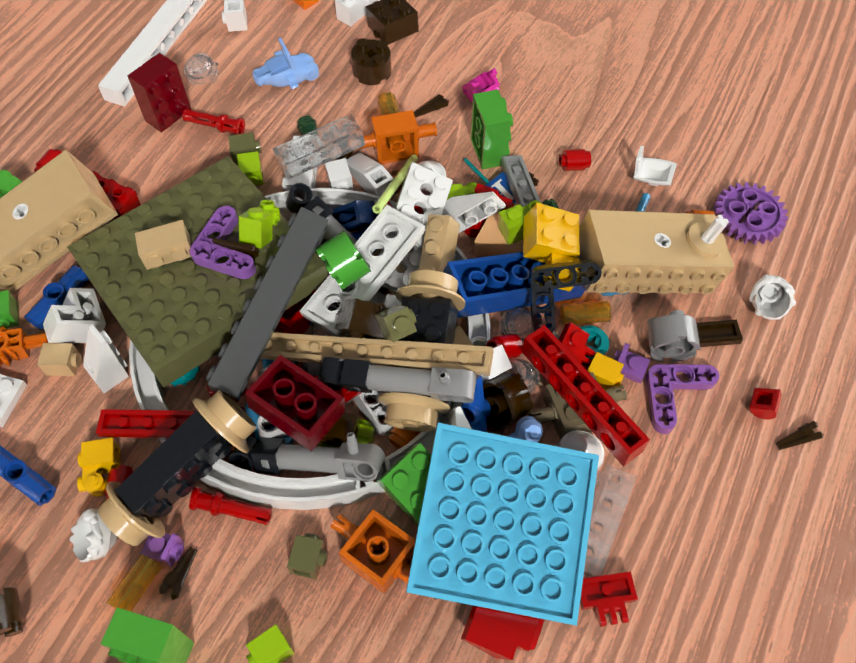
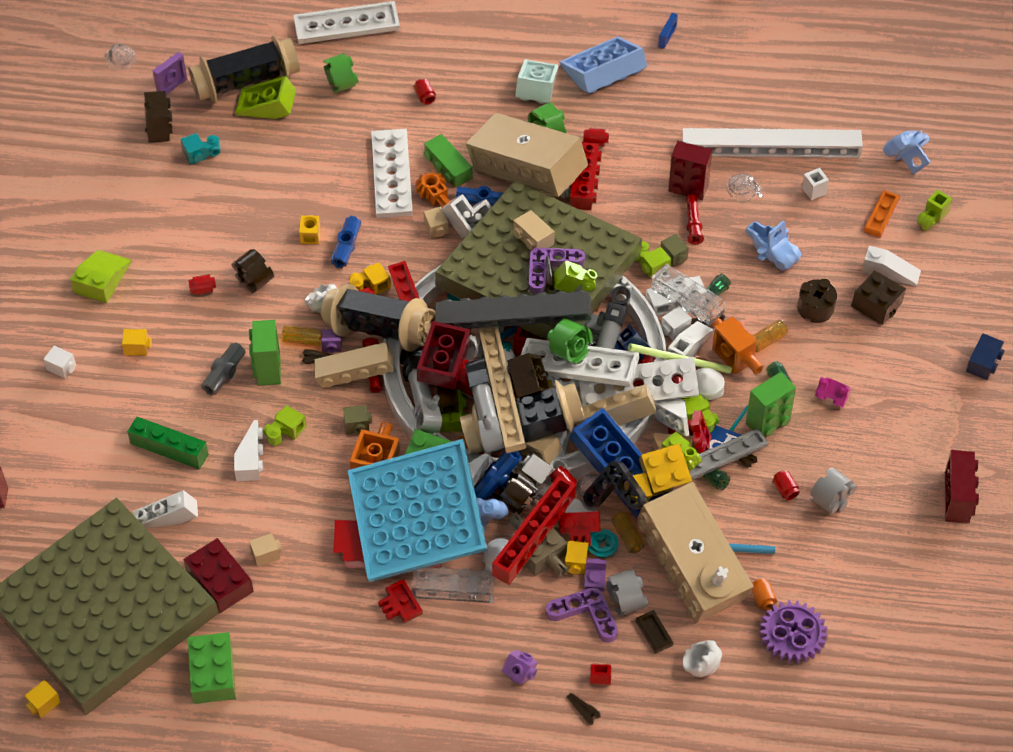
camera: 70 degrees right, 5 degrees down
(103, 360) = (441, 245): white slope -> none
(226, 530) = (354, 365): none -> tan brick
(396, 322) = (522, 384): olive brick -> none
(435, 104) = (798, 365): dark brown piece -> none
(442, 119) = (775, 368): none -> clear green cone
(603, 122) = (832, 491): none -> light grey brick
(630, 34) = (961, 486): none -> dark red brick
(653, 170) = (803, 546): white piece -> none
(742, 483) = (520, 667): none -> medium lavender brick

